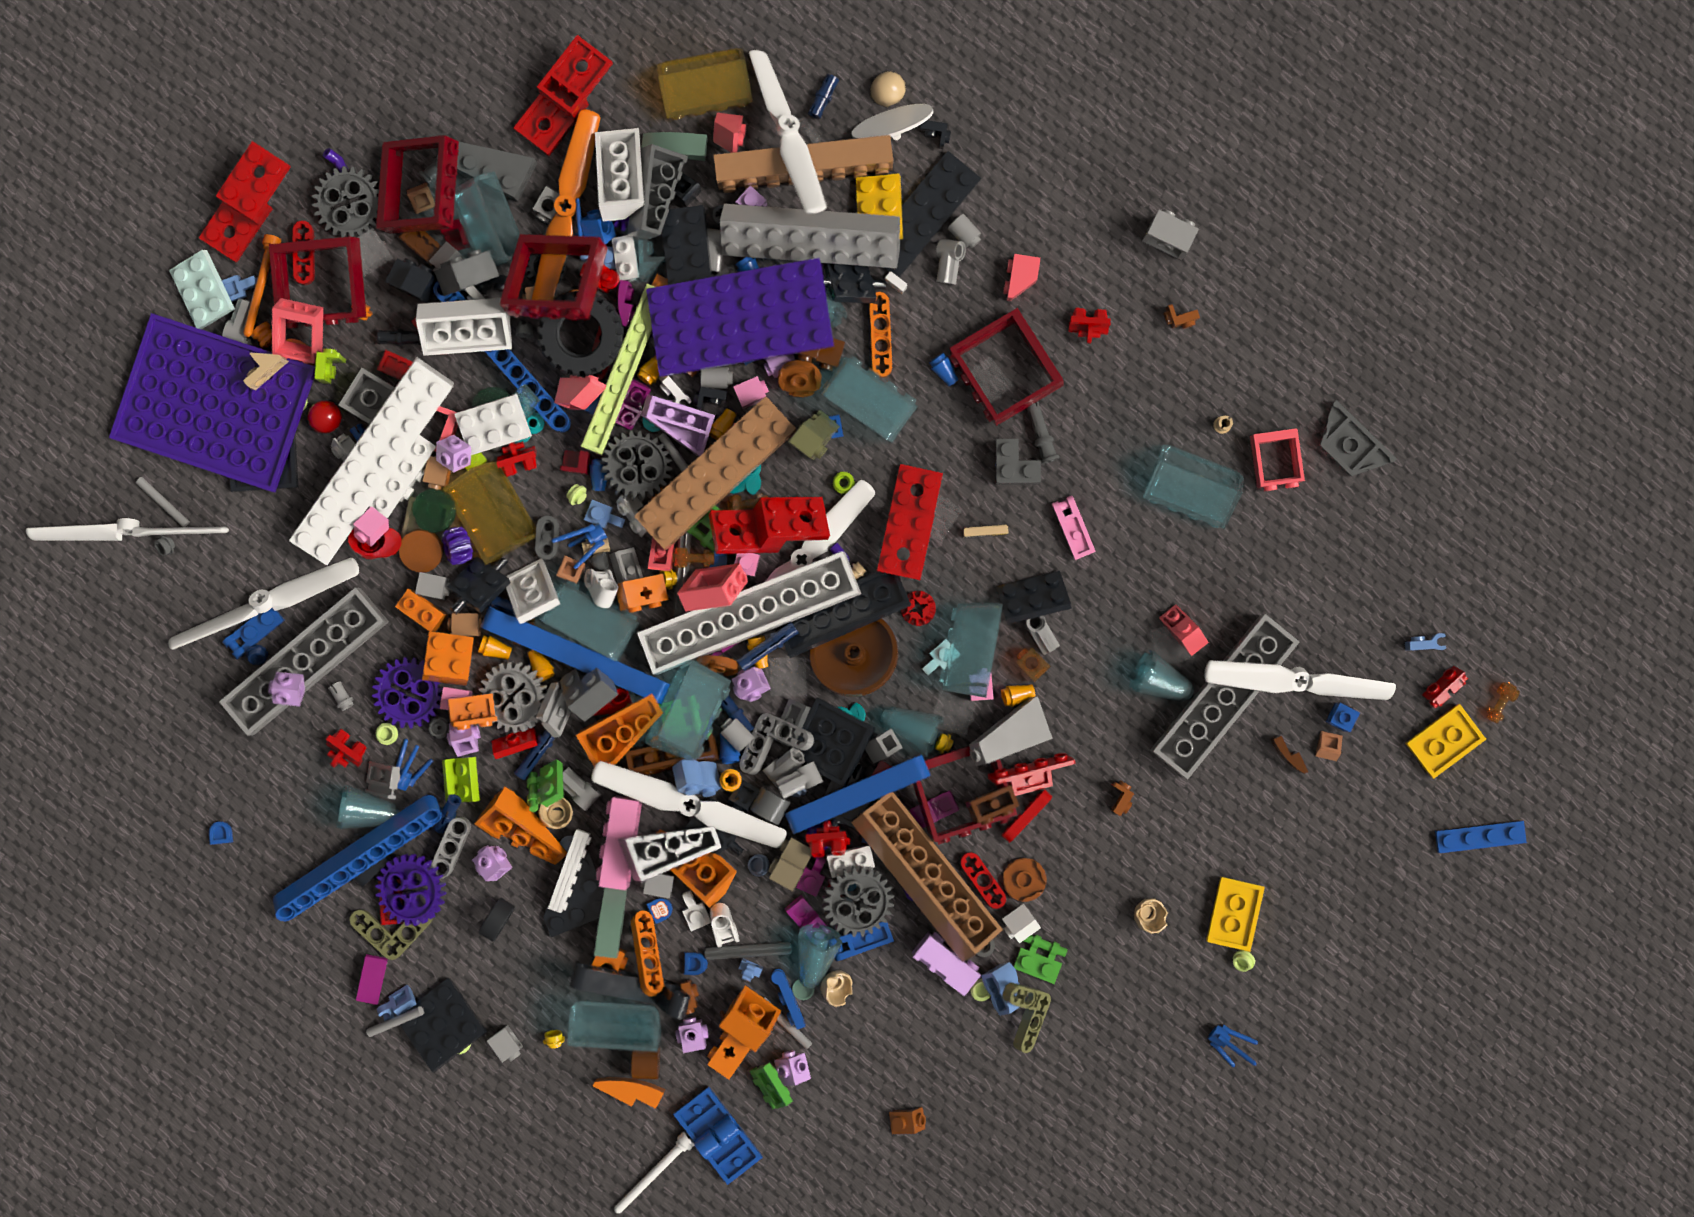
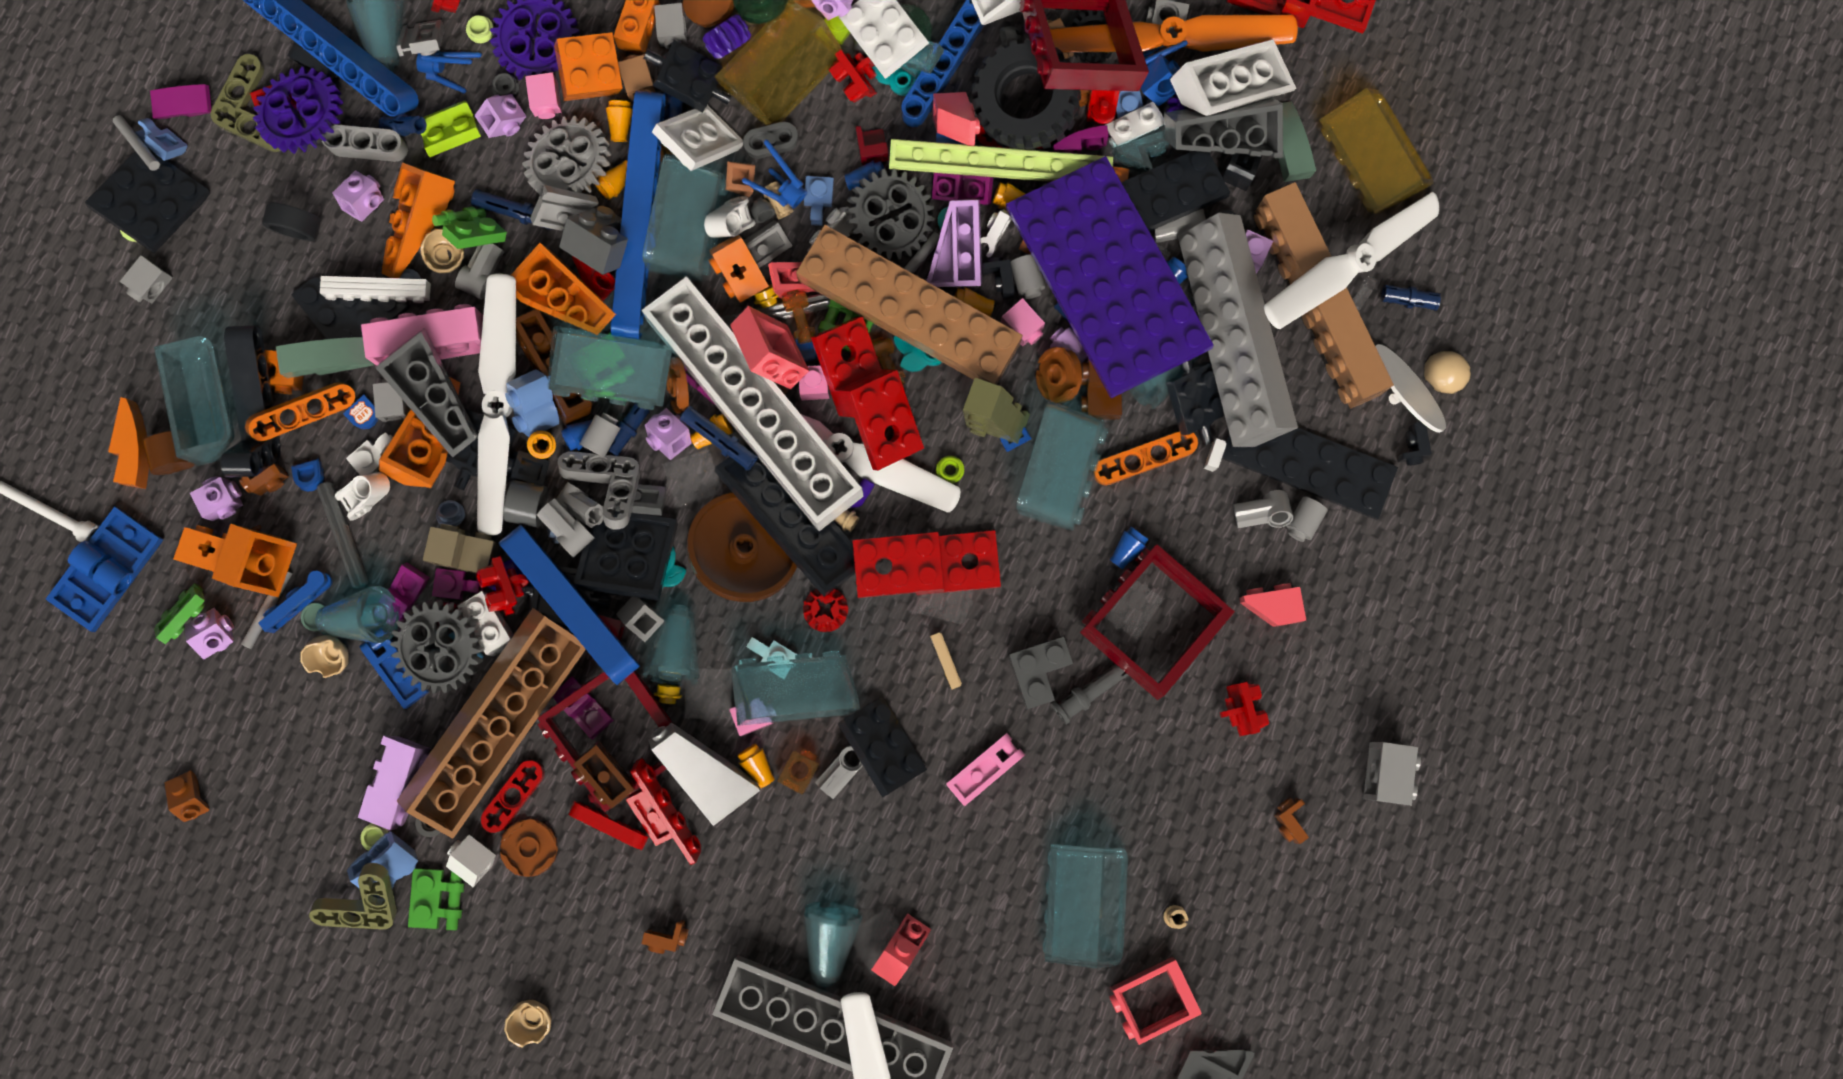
camera: 75 degrees right, 5 degrees down
(471, 710) = (532, 112): orange bracket -> none
(514, 743) = (511, 177): red plate -> none
(553, 1038) = (165, 334): yellow plate -> none
(576, 494) = (833, 157): yellowish green plate -> none
(729, 131) = (1330, 197): coral slope -> none
(749, 969) = (318, 543): medium blue plate -> none
(880, 196) = (1314, 404): yellow plate -> none

